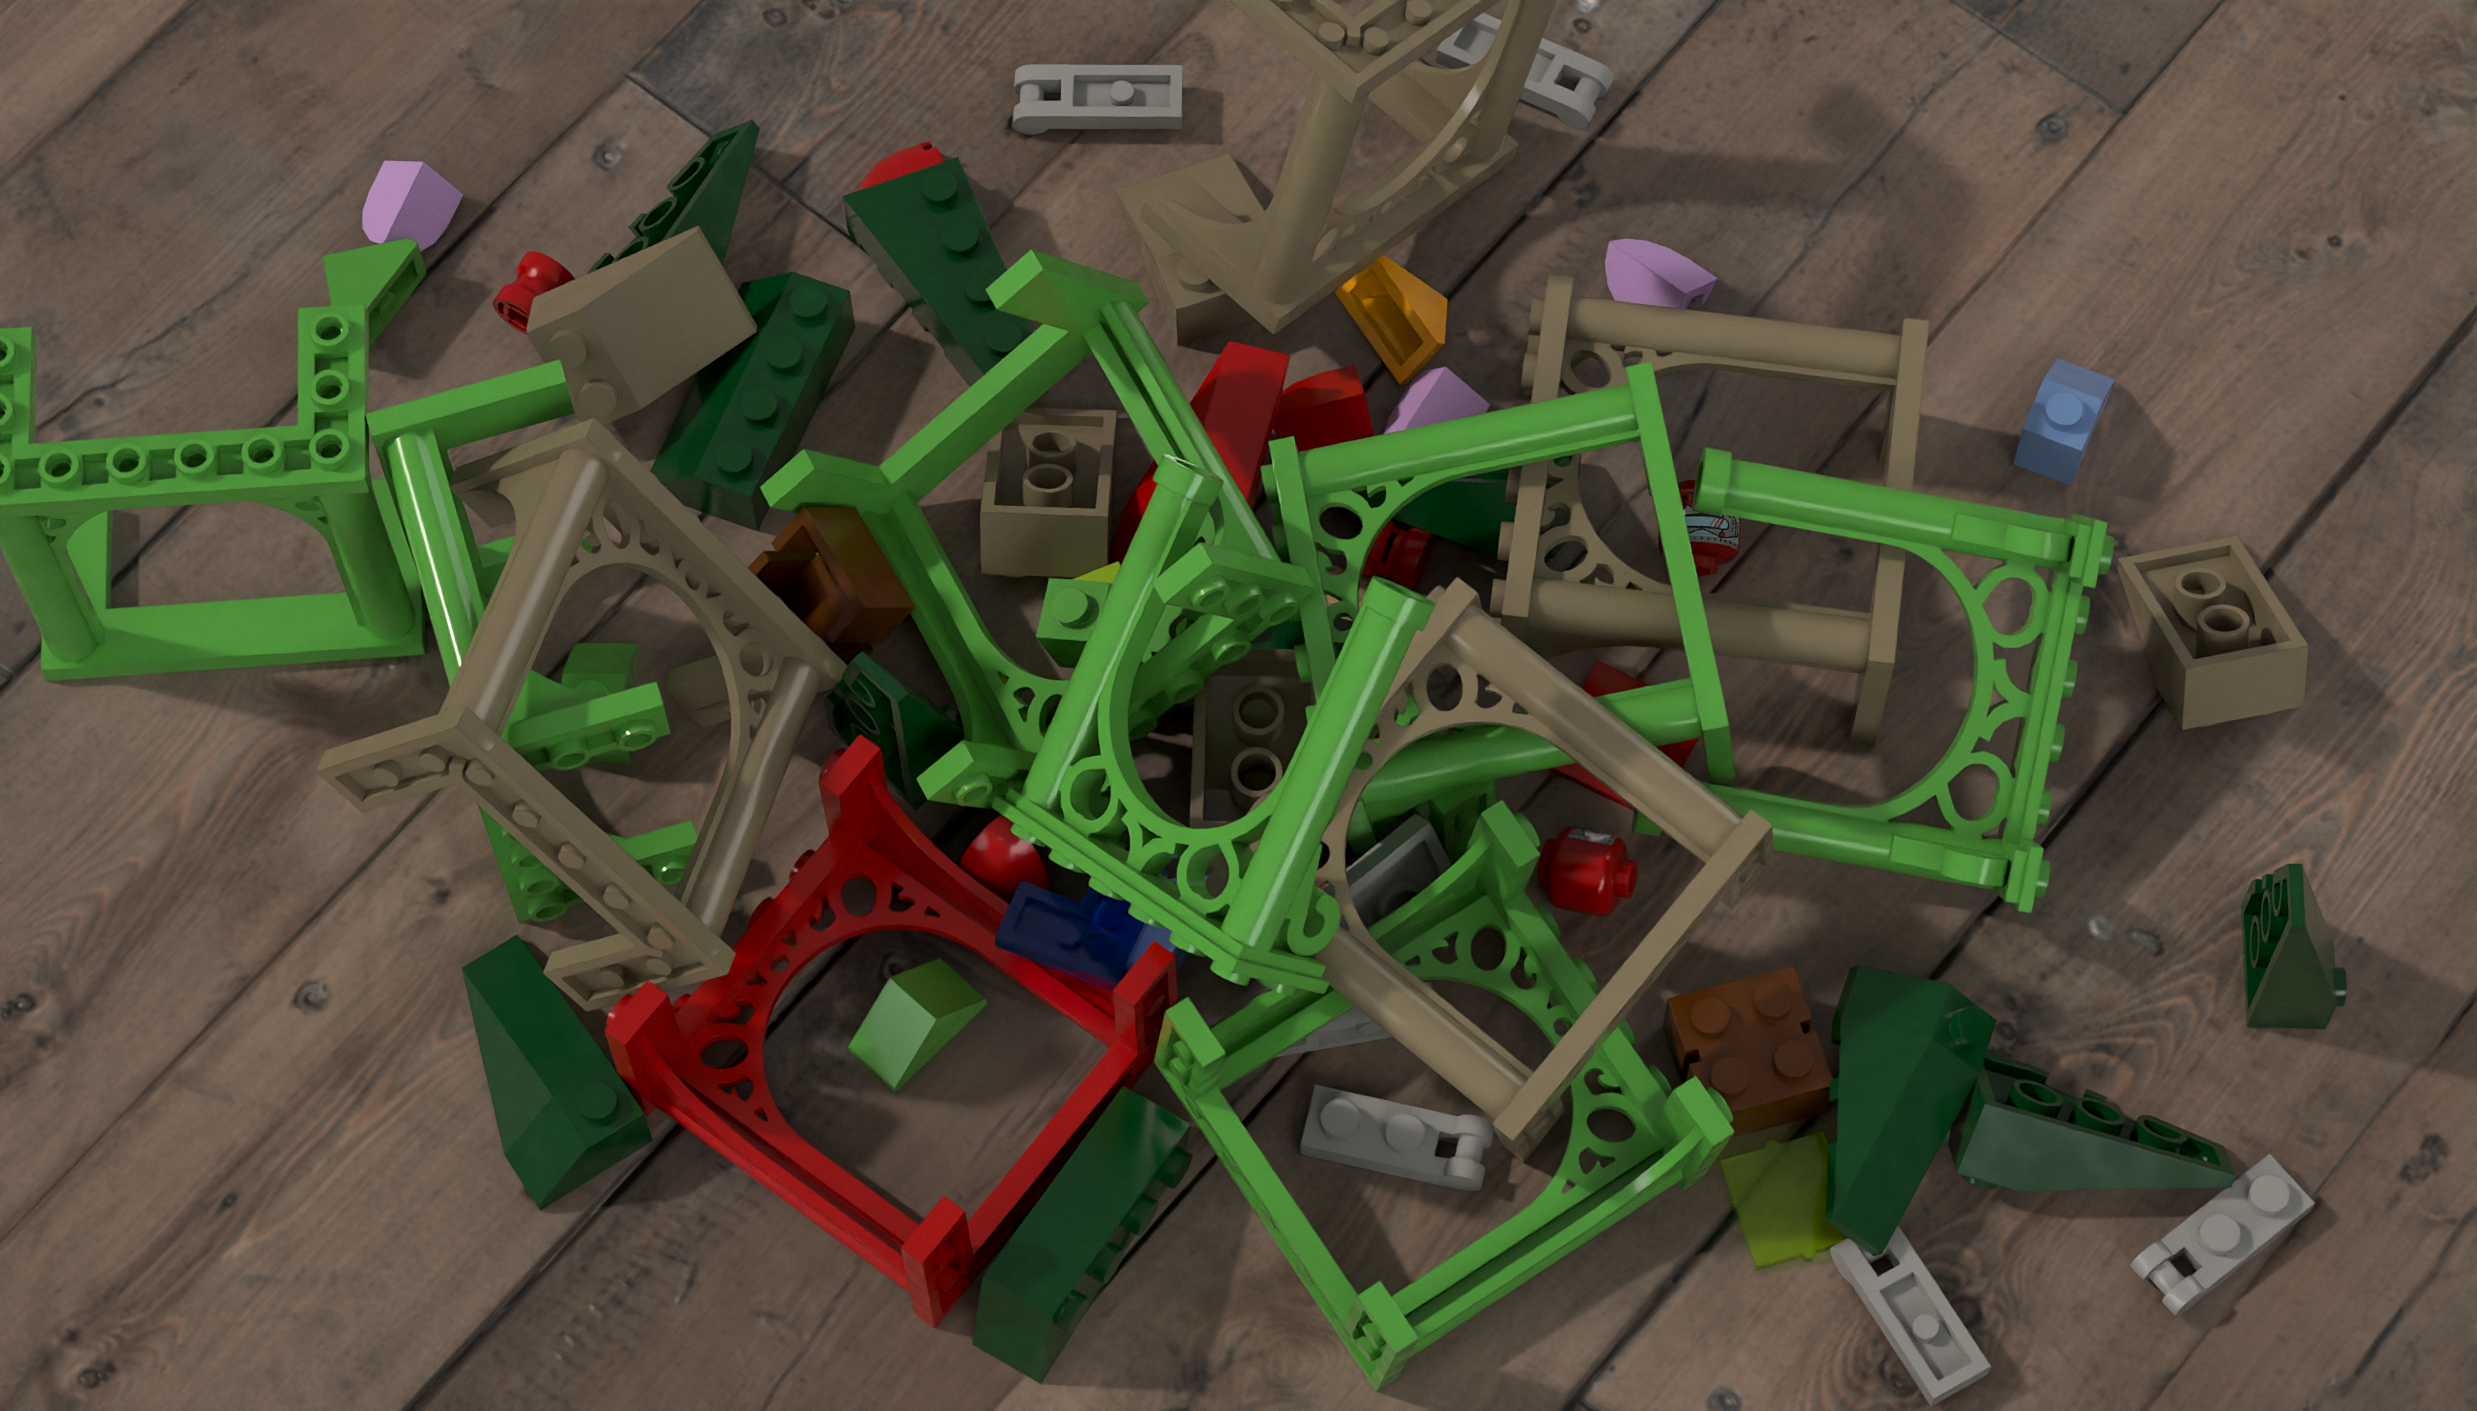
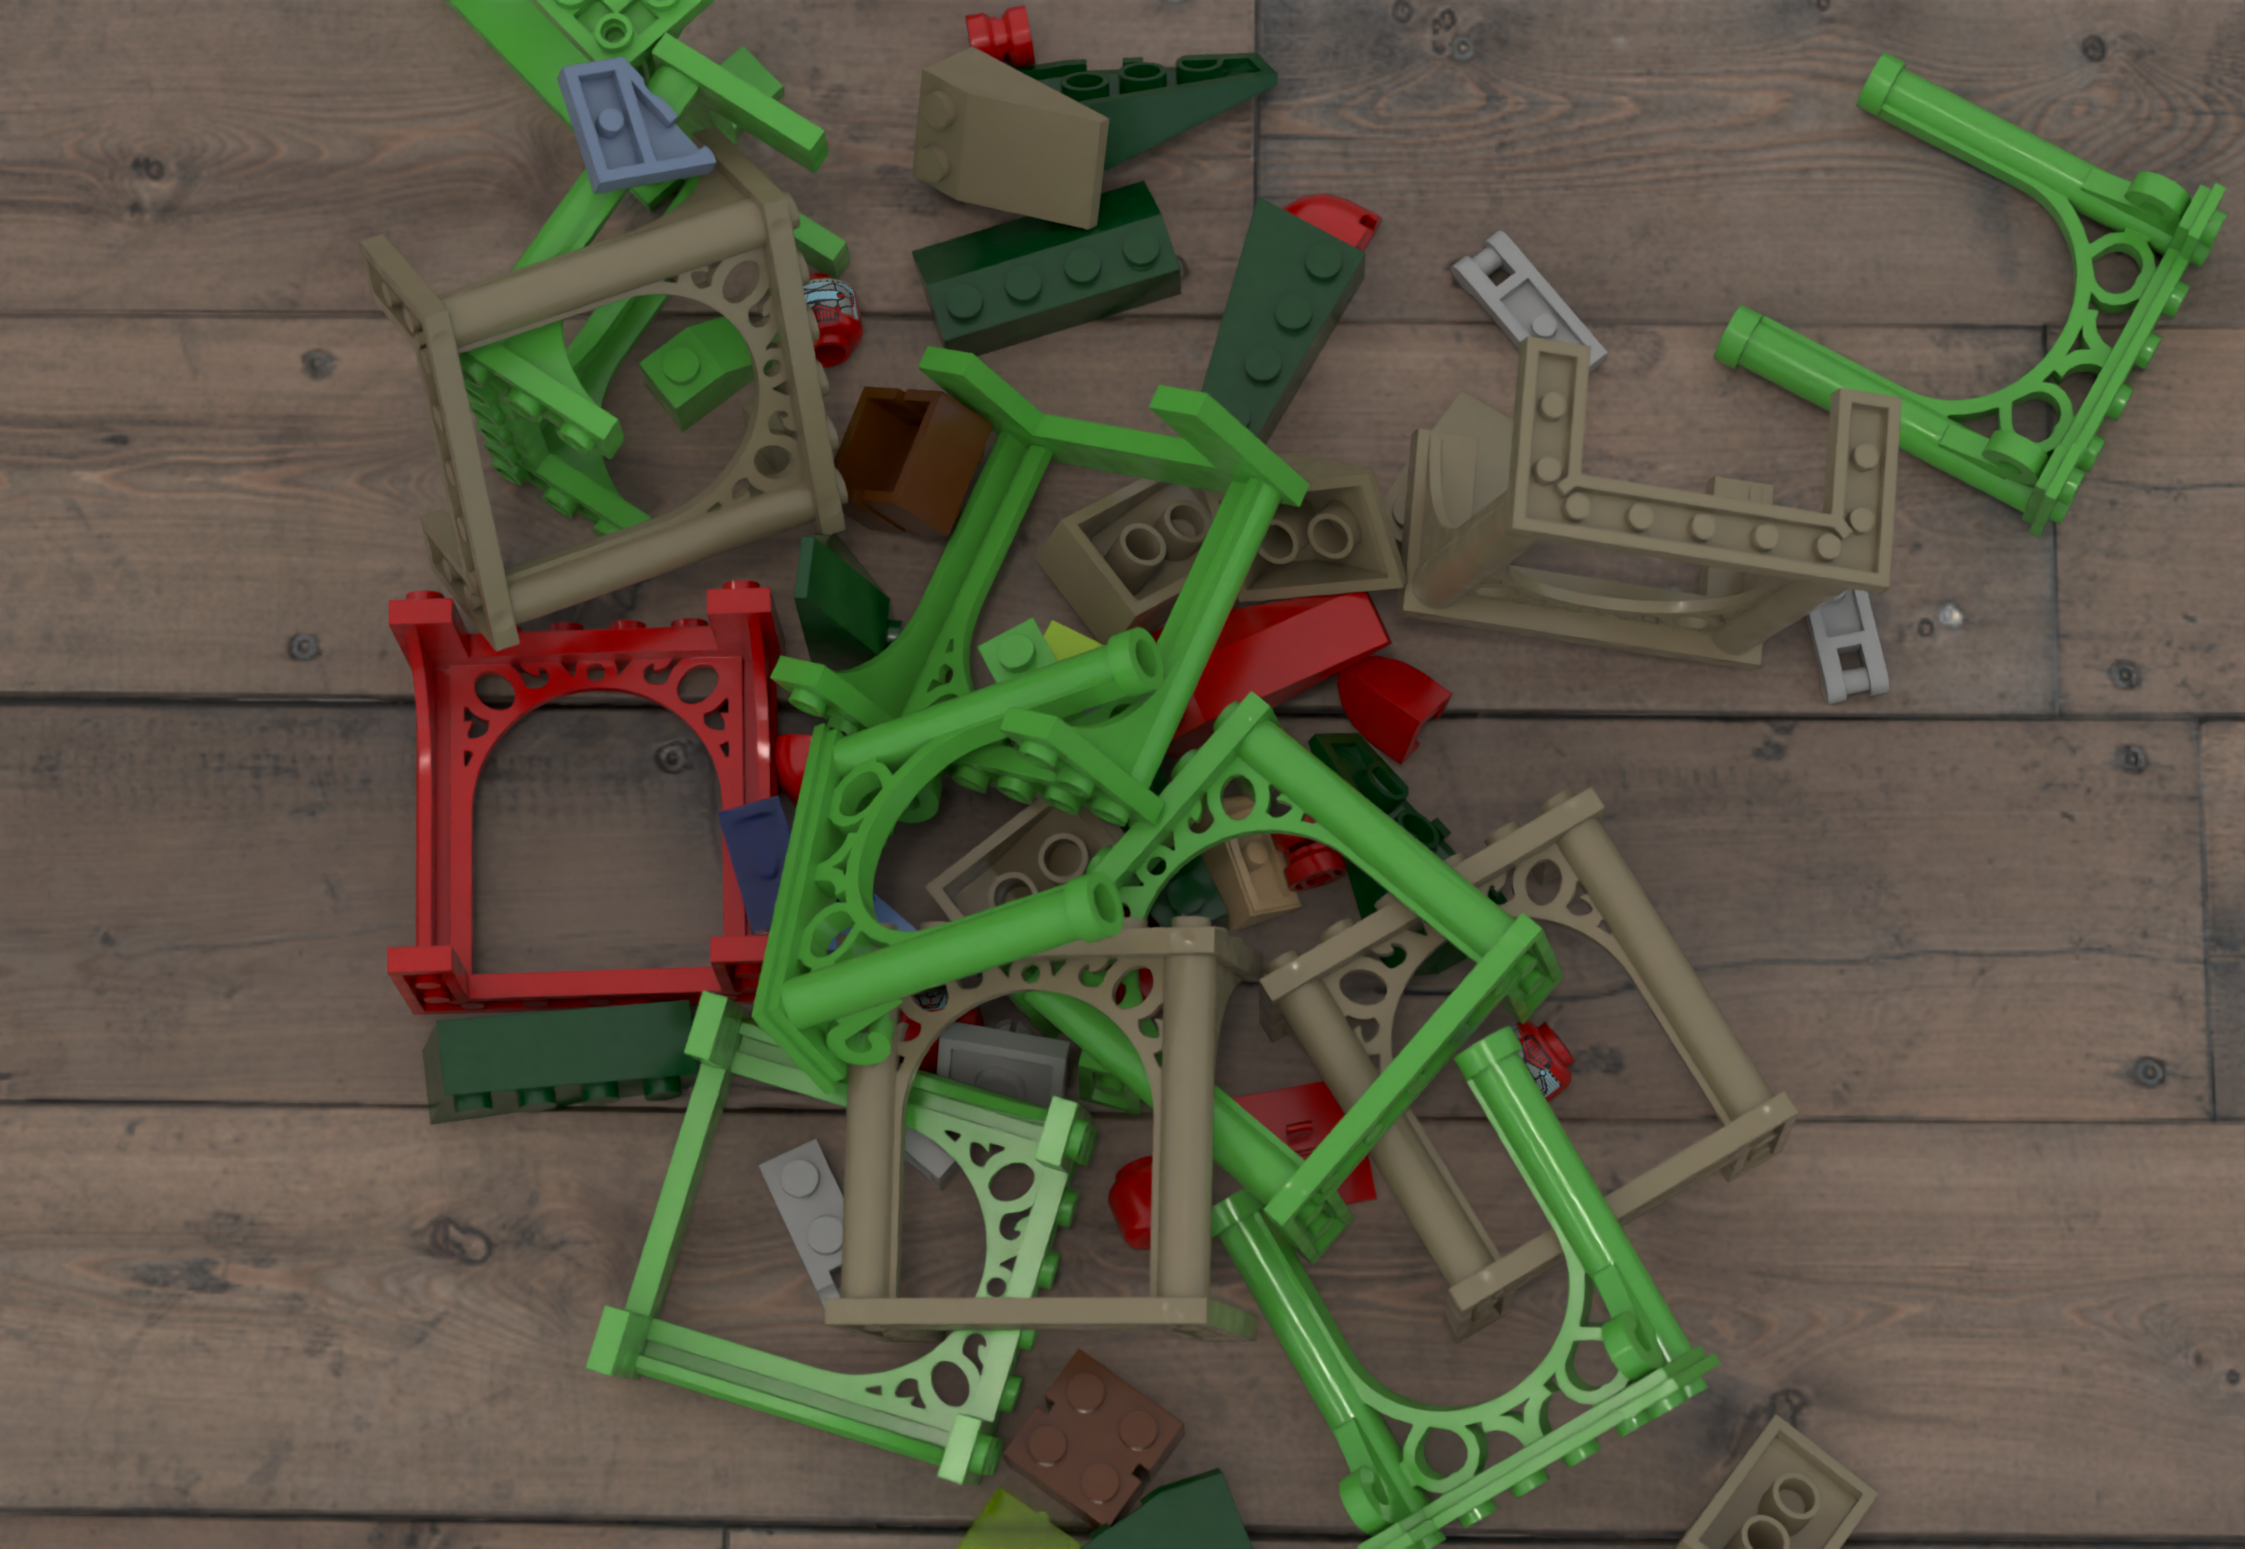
camera: 55 degrees right, 10 degrees up
(420, 494) = (625, 129): none -> sand blue wing
(549, 1082) = (346, 612): dark green wedge -> none
(635, 598) = (837, 318): none -> red head
(914, 1020) = (638, 806): bright green slope -> none
(1190, 317) = (1329, 543): none -> dark tan slope
(1396, 315) = (1528, 694): light orange slope -> none
(1434, 398) = (1454, 788): lavender brick -> none
(1654, 275) = (1723, 867): lavender brick -> none
(2062, 421) = (1871, 1277): medium blue slope -> none

